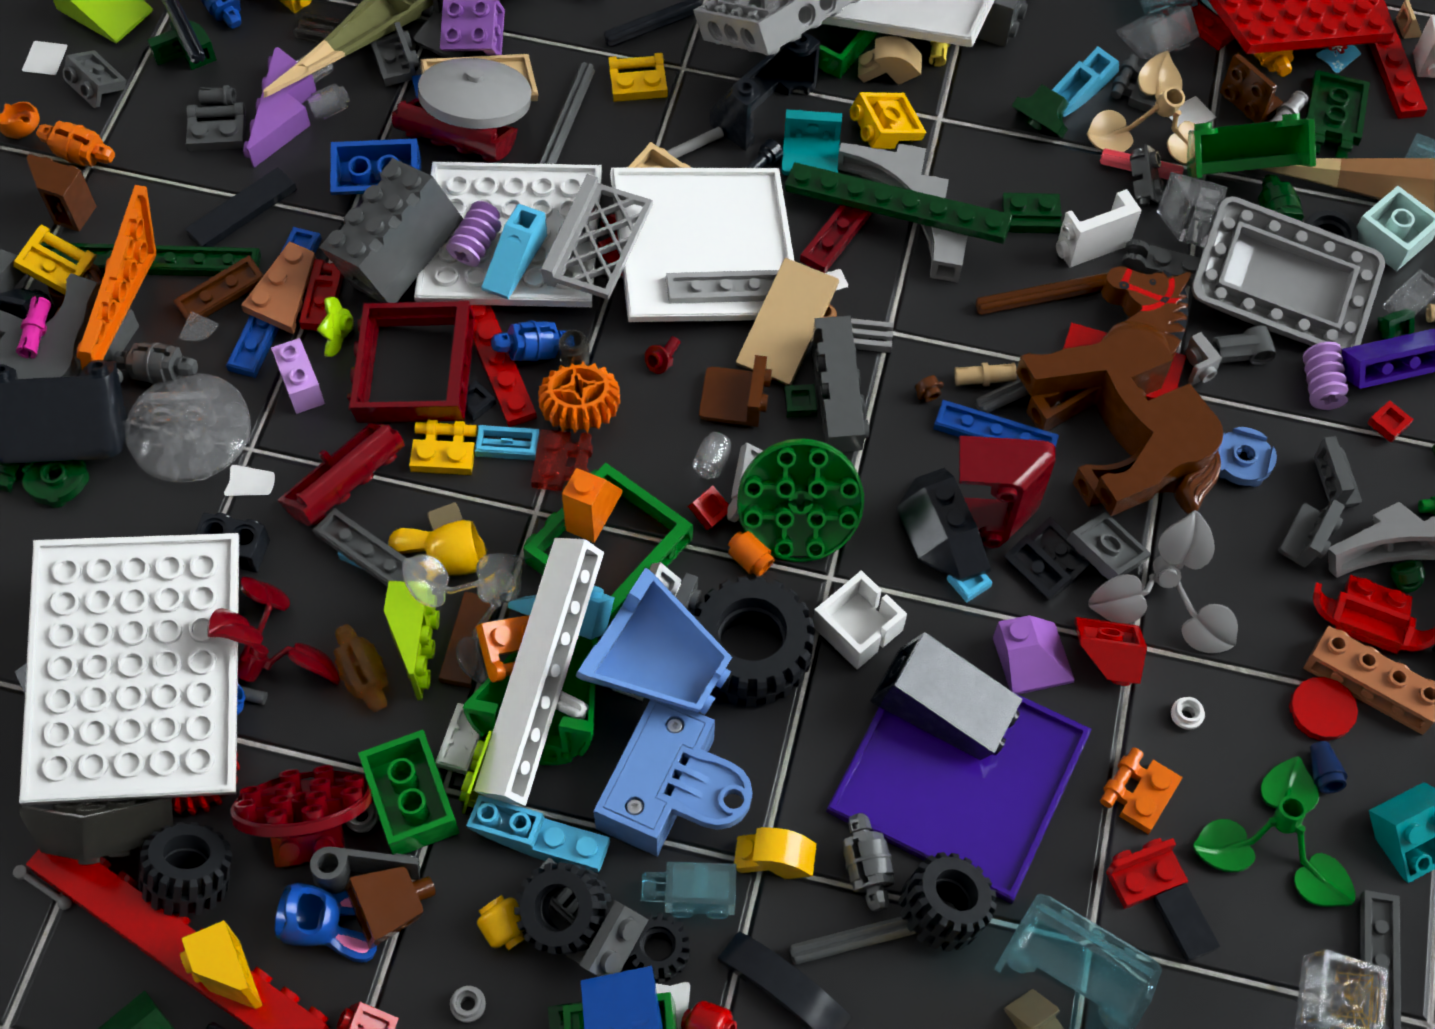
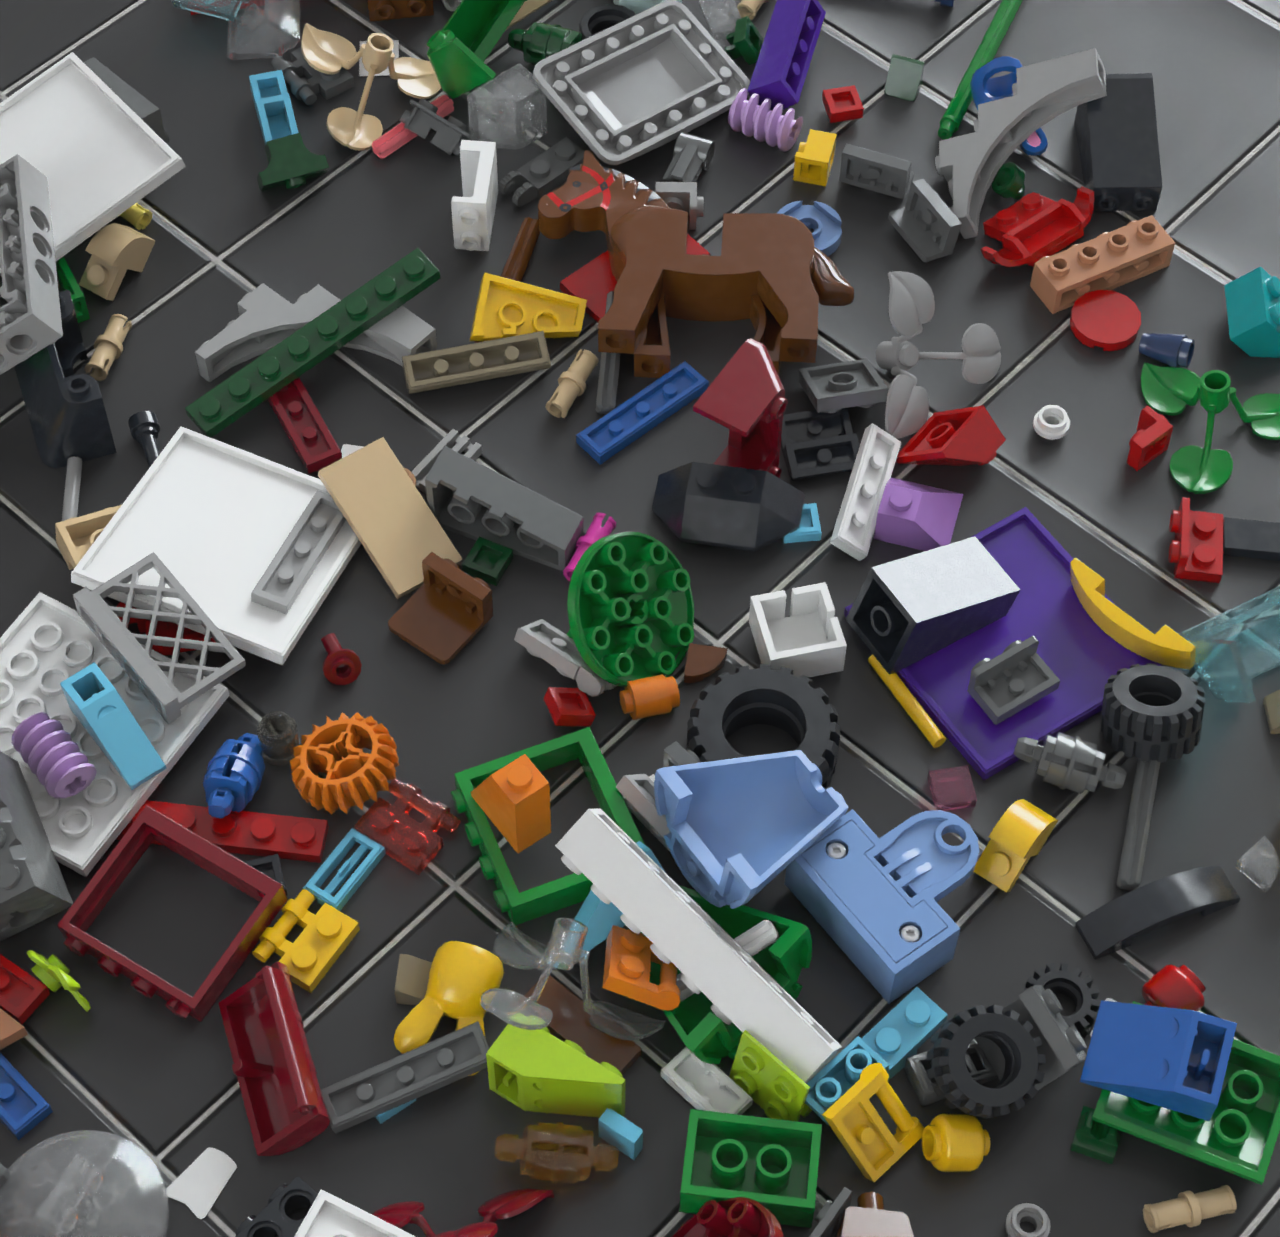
camera: 60 degrees left, 5 degrees down
(298, 375) = (97, 1052): lavender brick -> none
(398, 701) = (621, 1133): none -> medium azure tile
(472, 857) = (864, 1131): none -> yellow plate
(693, 889) = (1013, 936): clear light blue brick -> none
(712, 455) = (505, 673): clear brick -> none
(801, 791) = (952, 788): none -> clear pink tile
(804, 574) = (703, 661): none -> reddish brown tile
(811, 139) = (164, 381): teal bracket -> none
(819, 98) = (108, 347): none -> tan pin
(855, 732) = (909, 704): none -> yellow bar
(863, 454) = (592, 535): none -> dark pink pin
(886, 119) = (188, 302): yellow plate -> none
(915, 787) = (1011, 680): none -> dark grey bracket
(929, 388) = (556, 439): reddish brown plate -> none
(959, 307) = (476, 362): none -> dark tan brick
(1021, 311) = (518, 308): none -> yellow wing
(1031, 810) = (1163, 647): none -> yellow slope
(1033, 212) = (399, 238): dark green plate -> none
(1048, 604) = (864, 492): none -> white tile
(1150, 796) = (1117, 496): orange plate -> none
(1220, 795) = (1150, 439): none -> red bracket
(1316, 425) = (815, 158): none -> yellow brick

